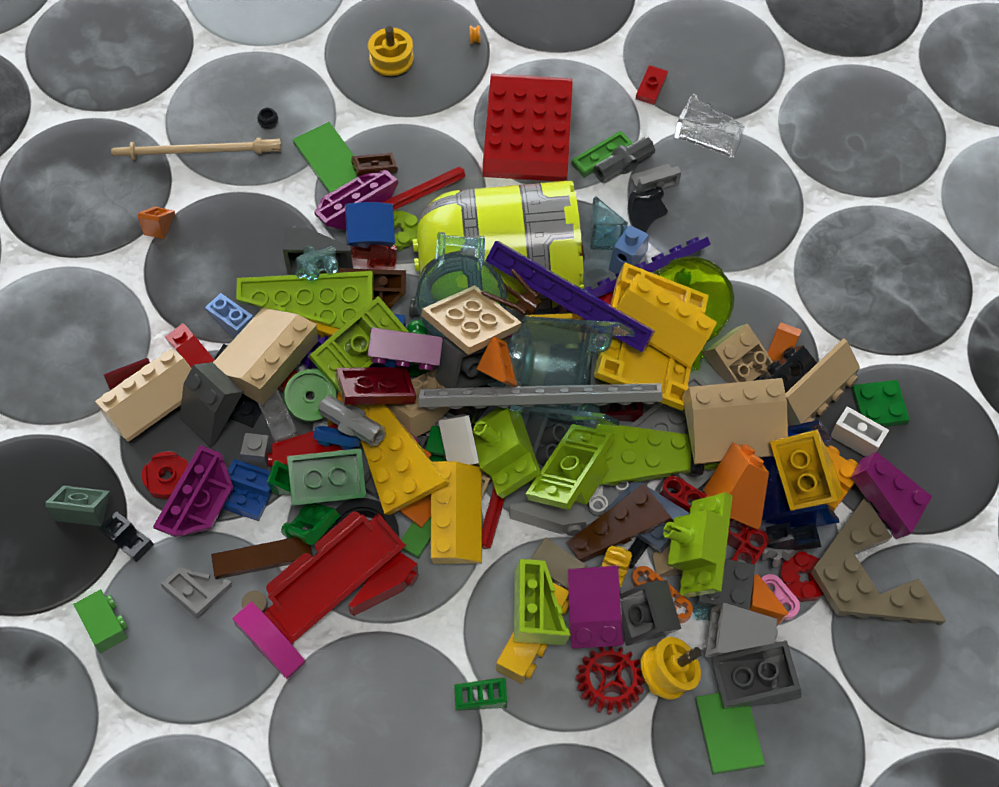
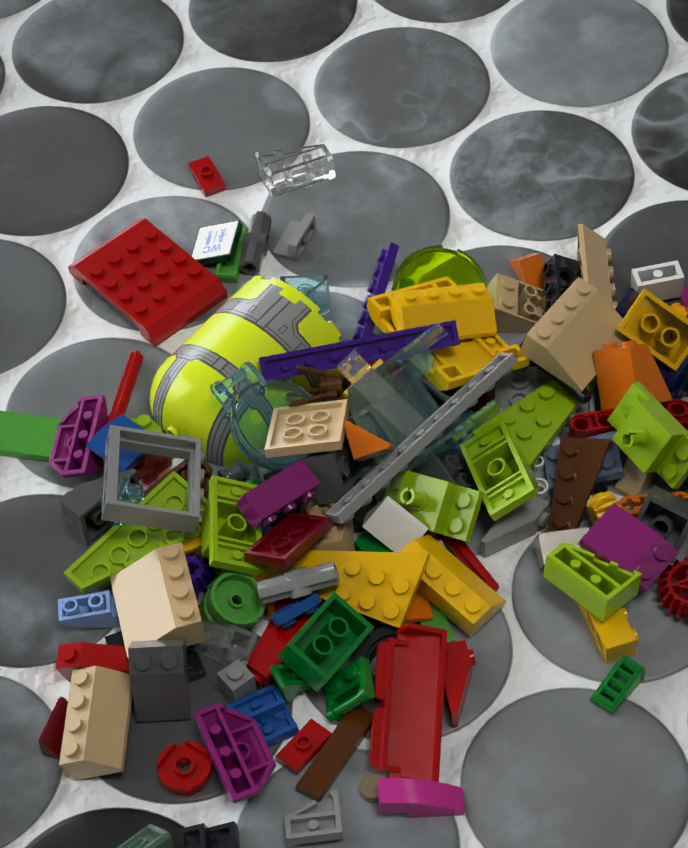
camera: 40 degrees left, 10 degrees down
(248, 532) = (303, 747): none -> red plate
(369, 236) = (156, 444): none -> light grey window
(374, 163) = (61, 408): reddish brown tile -> none
(474, 34) = (16, 248): light orange bush -> none
(540, 339) = (380, 393): none -> clear slope
(598, 137) = (217, 242): none -> tile
(631, 244) = (344, 291): medium blue torso -> none
(645, 208) = (313, 262): black arm -> none
(881, 402) = (642, 251): green plate -> none

